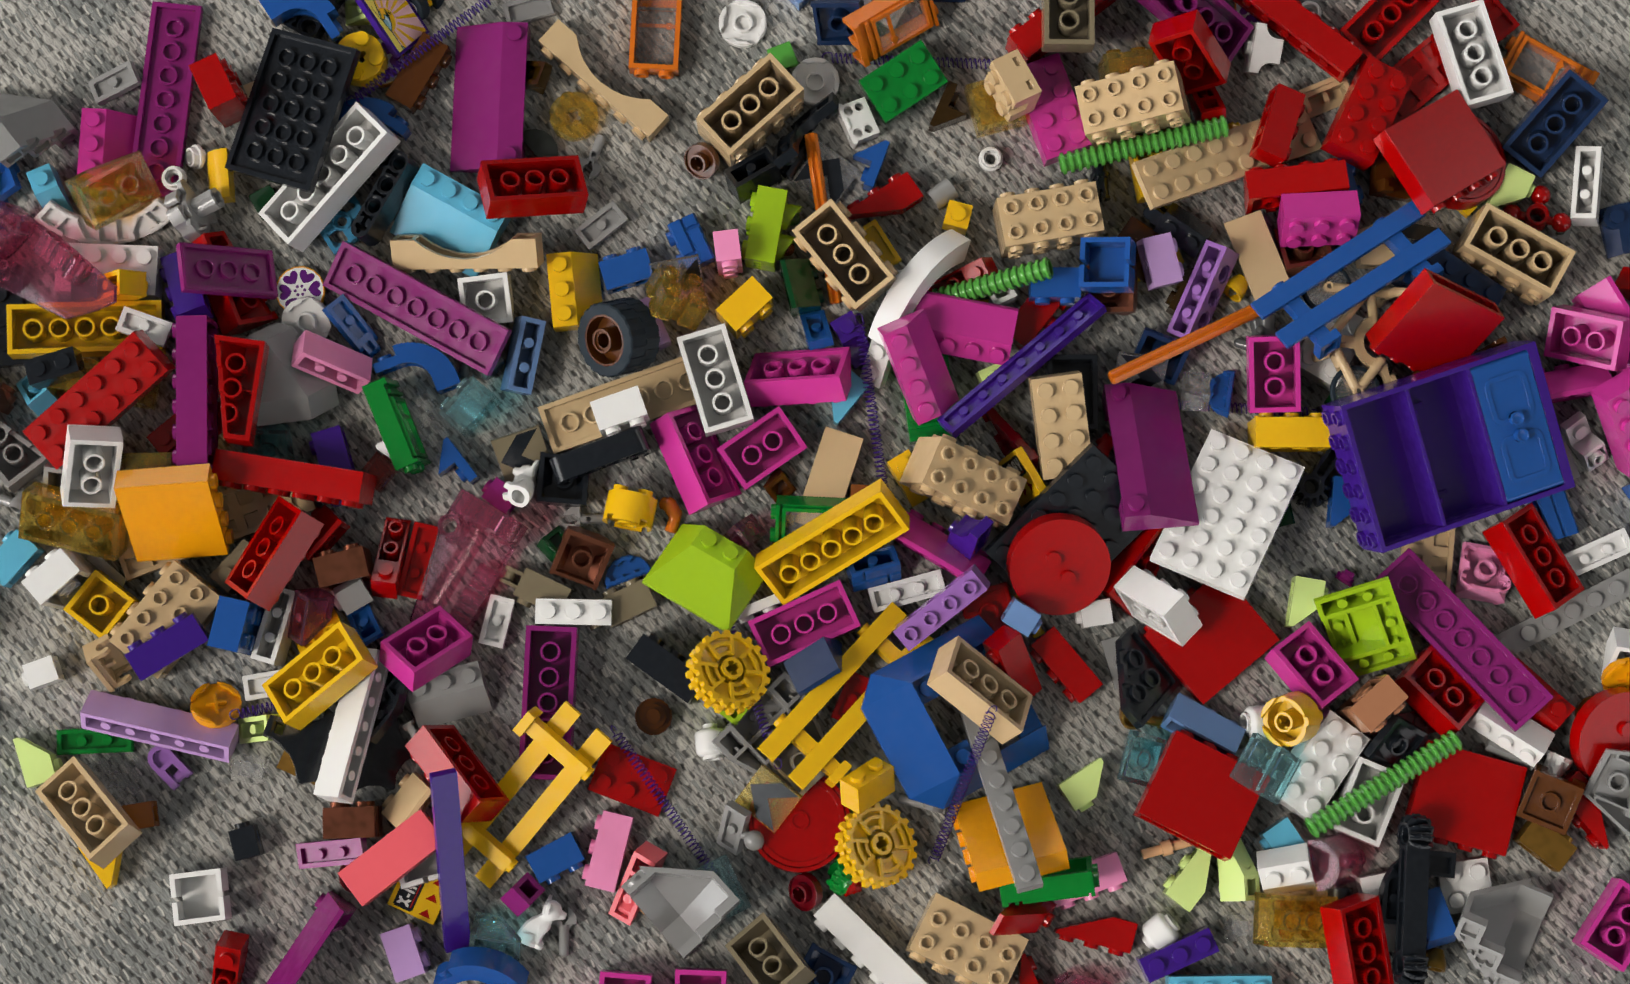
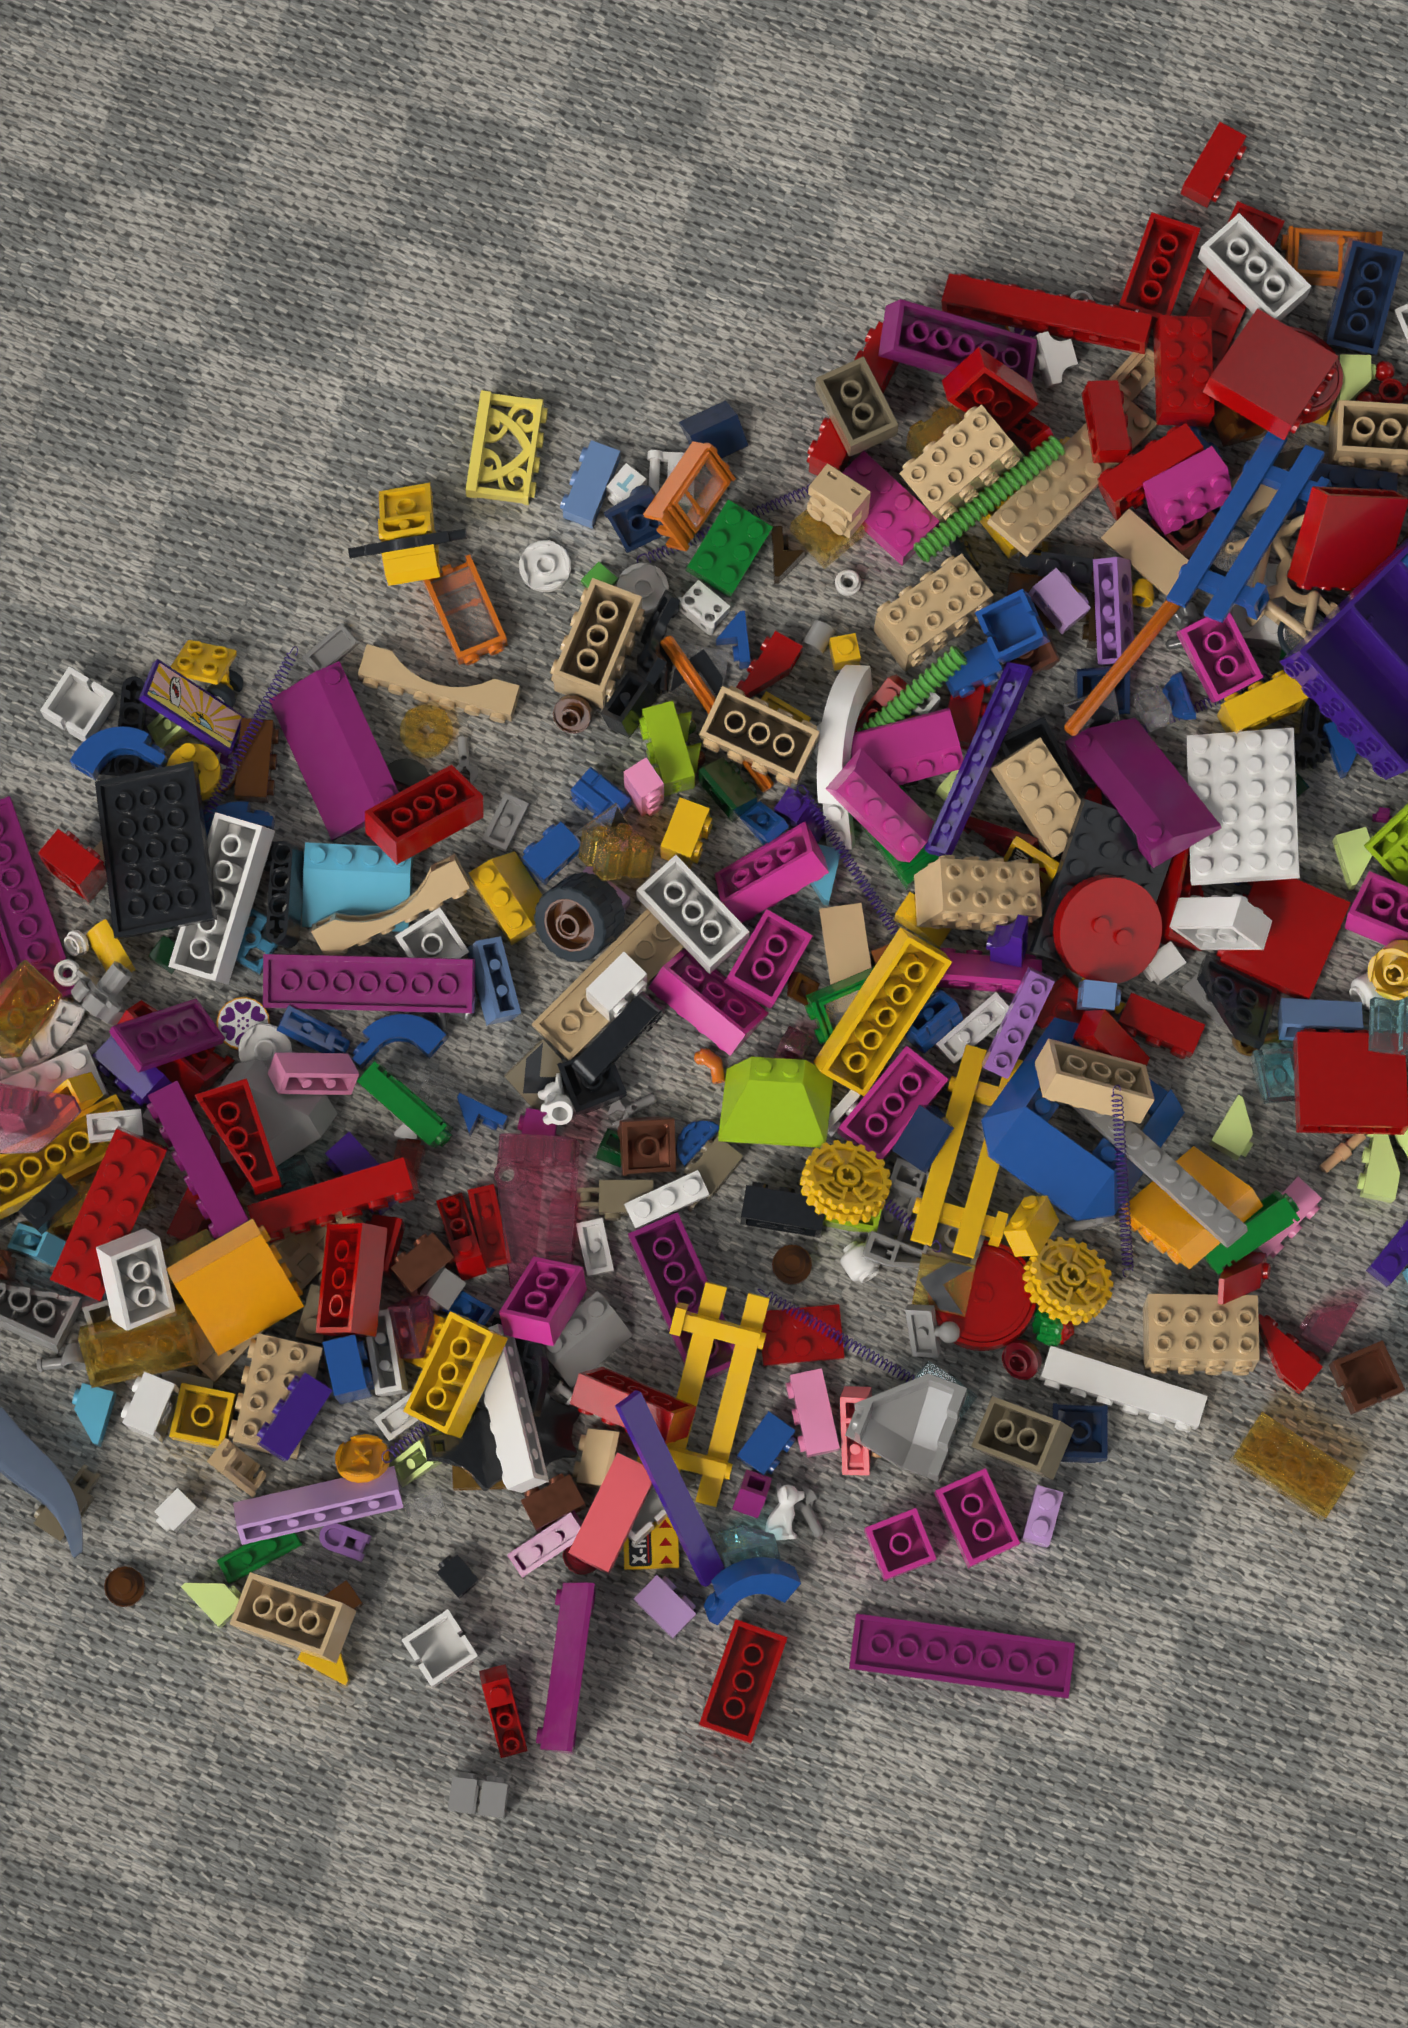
camera: 25 degrees left, 5 degrees down
(468, 406) = (466, 1053): clear light blue slope -> none
(537, 76) = (374, 707): dark brown slope -> none
(630, 509) = (671, 1076): yellow brick -> none
(851, 691) = (969, 1153): red plate -> none
(1106, 931) = (1329, 1257): red slope -> none
(1160, 931) = (1376, 1232): white head -> none

